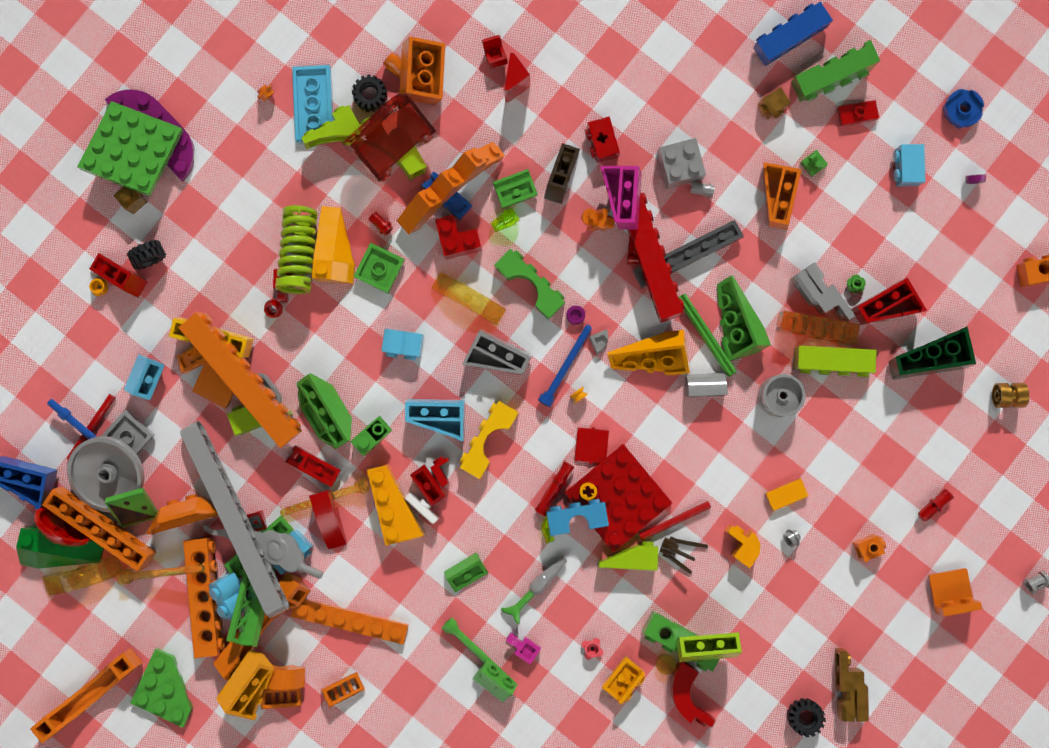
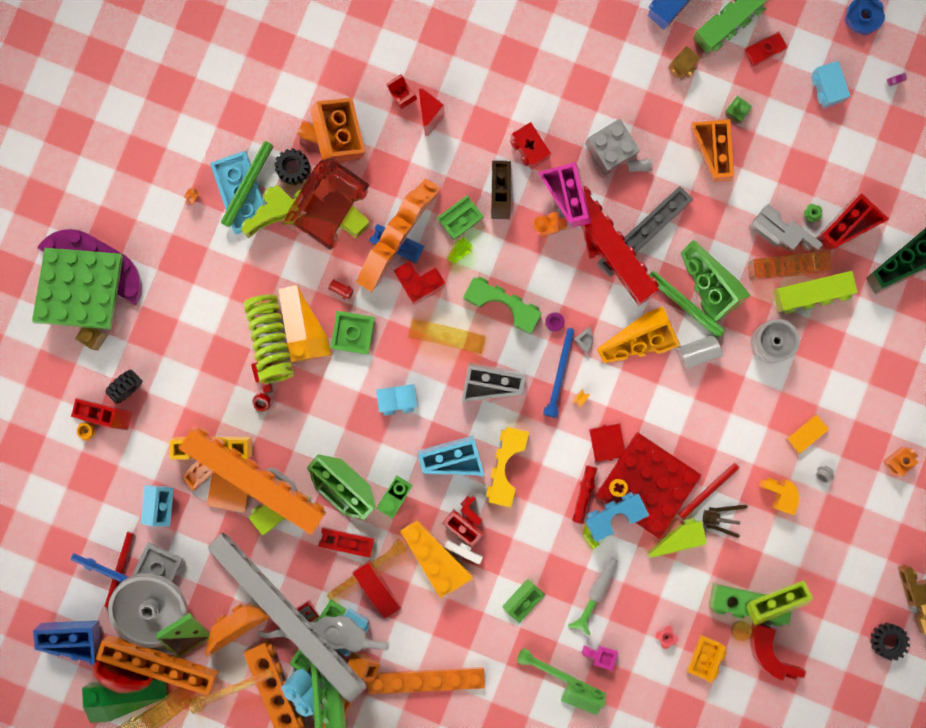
camera: 20 degrees left, 0 degrees up
(321, 96) = (246, 184): none -> bright green axle

